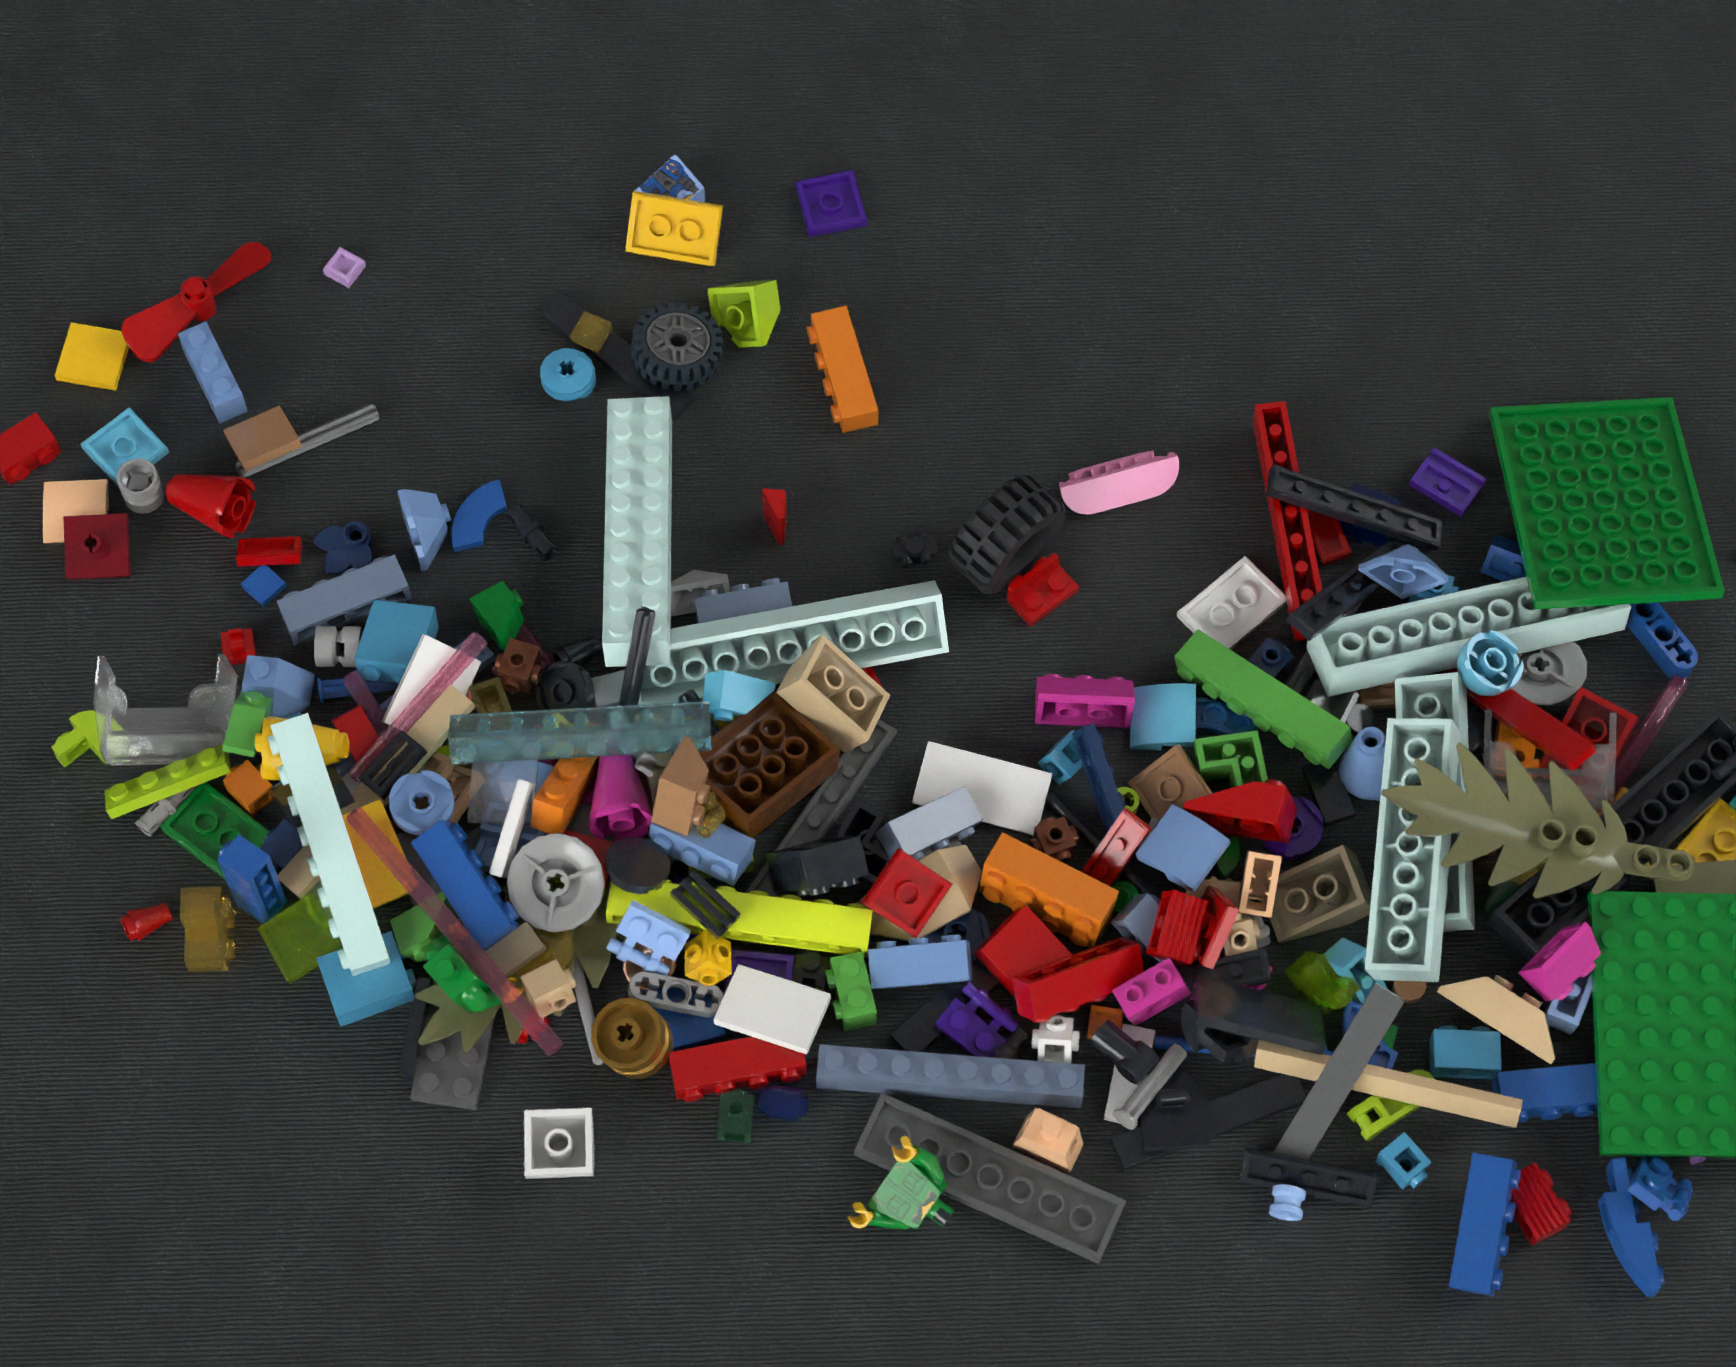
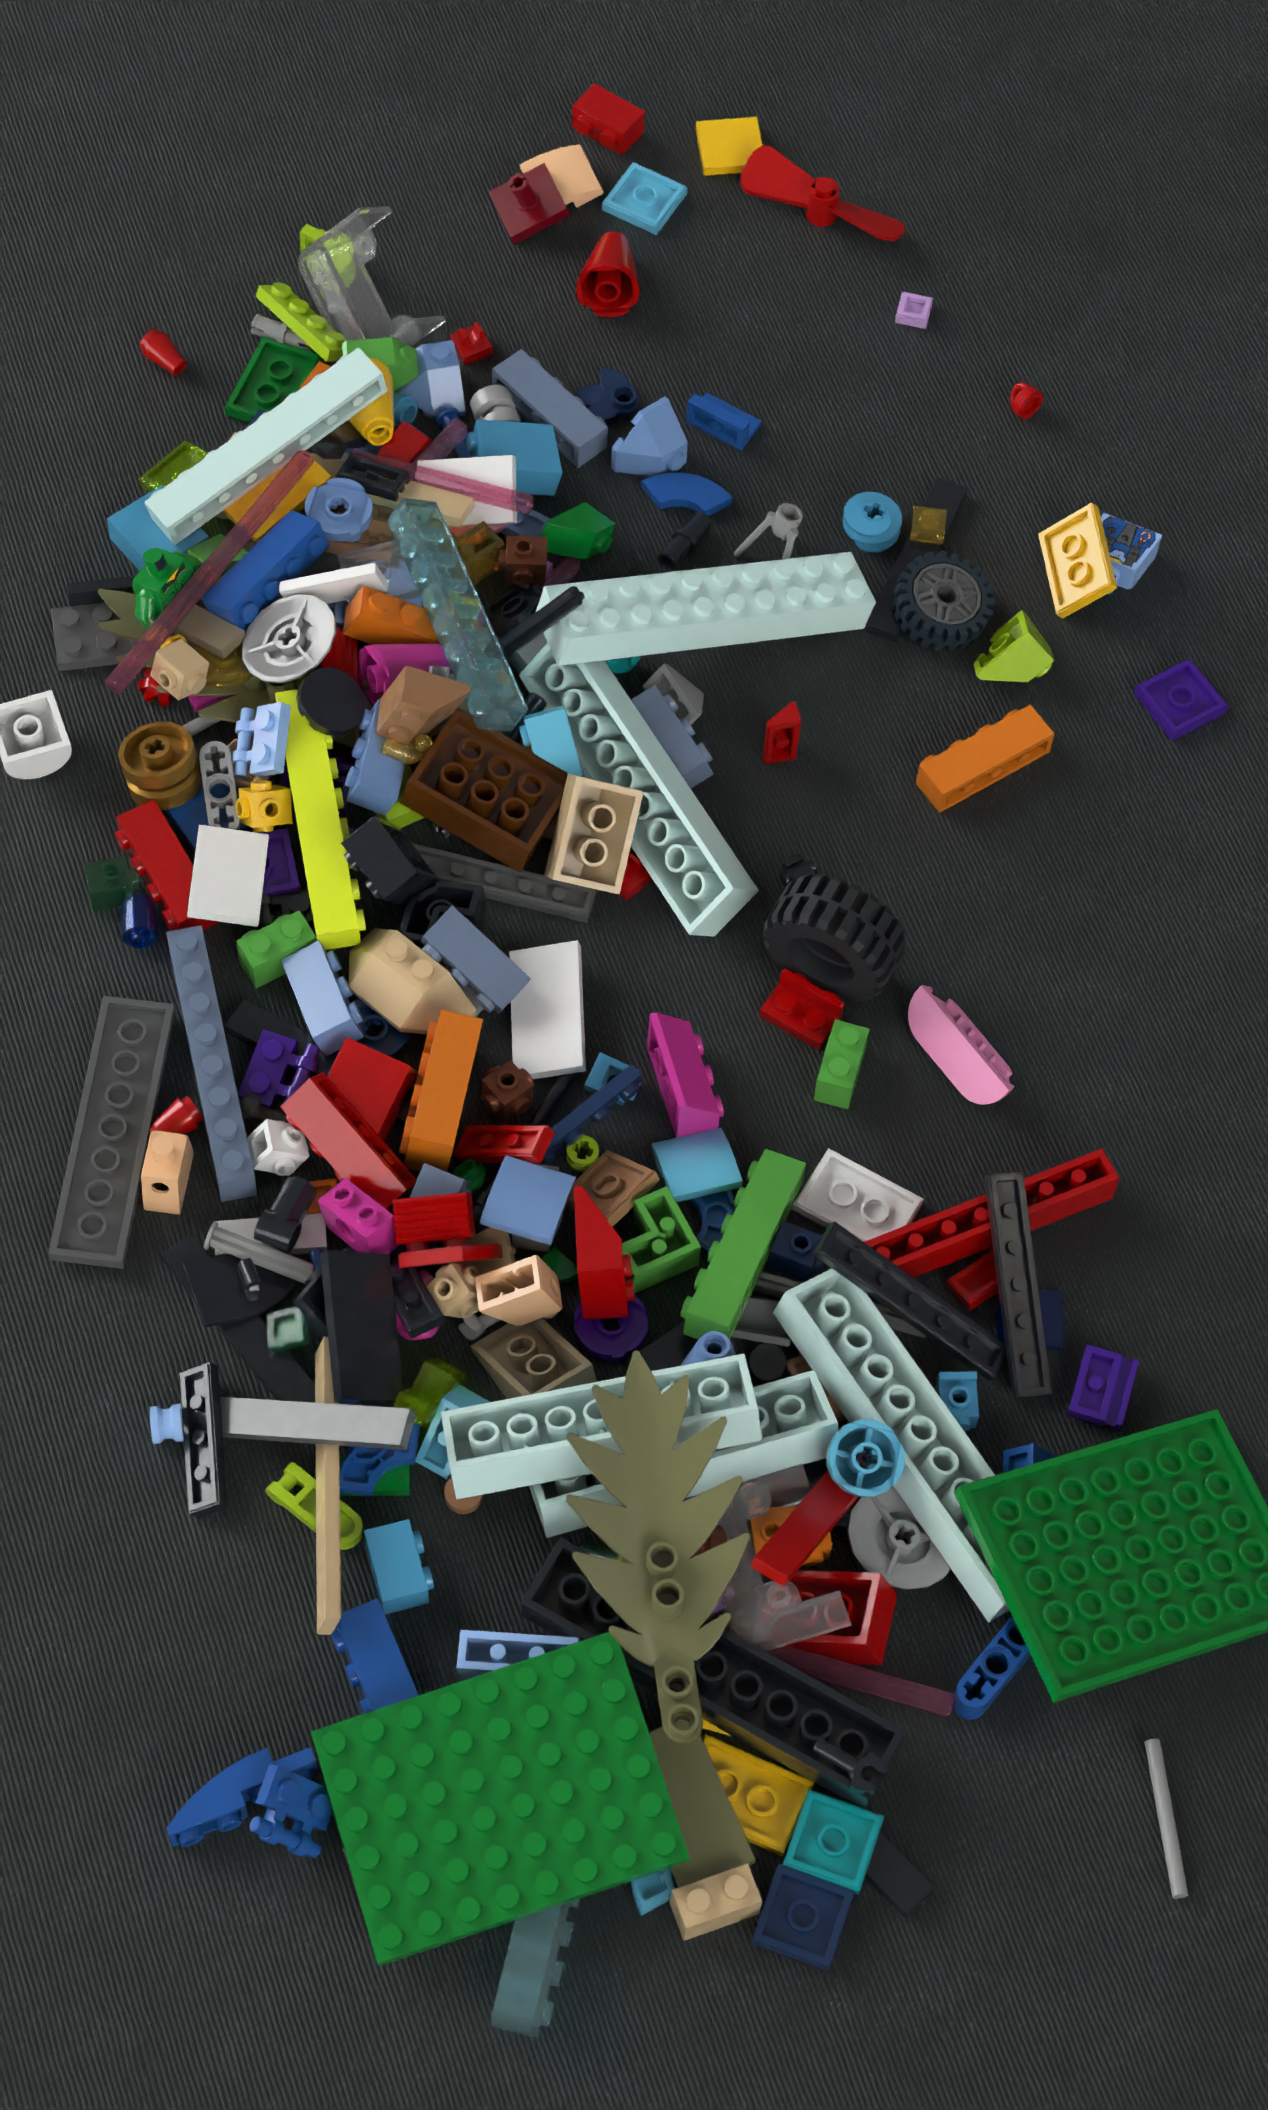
camera: 70 degrees right, 5 degrees down
(140, 485) = (603, 211): light grey wheel -> none
(207, 927) = (167, 398): clear yellow brick -> none
(212, 372) = (748, 235): medium blue brick -> none
(251, 879) = (210, 395): blue brick -> none
(262, 438) = (694, 294): medium nougat tile -> none
(263, 585) = (543, 344): blue tile -> none
(269, 551) = (578, 336): red tile -> none
(321, 435) = (711, 334): dark grey axle -> none
(408, 461) = (721, 420): none -> blue panel
(489, 217) = (1025, 400): none -> red tile
(563, 442) = (783, 524): none -> light grey plant
(686, 885) = (299, 764): black tile -> none
(907, 893) = (386, 951): red tile -> none
(907, 1192) = (67, 1049): torso -> none
(997, 1121) = (178, 1118): none -> red cone
(1106, 575) = (841, 1064): none -> bright green brick
(1231, 1079) = (287, 1329): none -> clear green tile
(1404, 571) = (955, 1347): medium blue slope -> none
(1404, 1151) = (247, 1519): dark azure brick -> none
(1484, 1224) = (190, 1623): blue brick -> none
(1504, 1011) = (443, 1588): tan wedge -> none
(1537, 1206) = (239, 1682): red brick -> none
(1562, 961) = (512, 1615): dark pink slope -> none

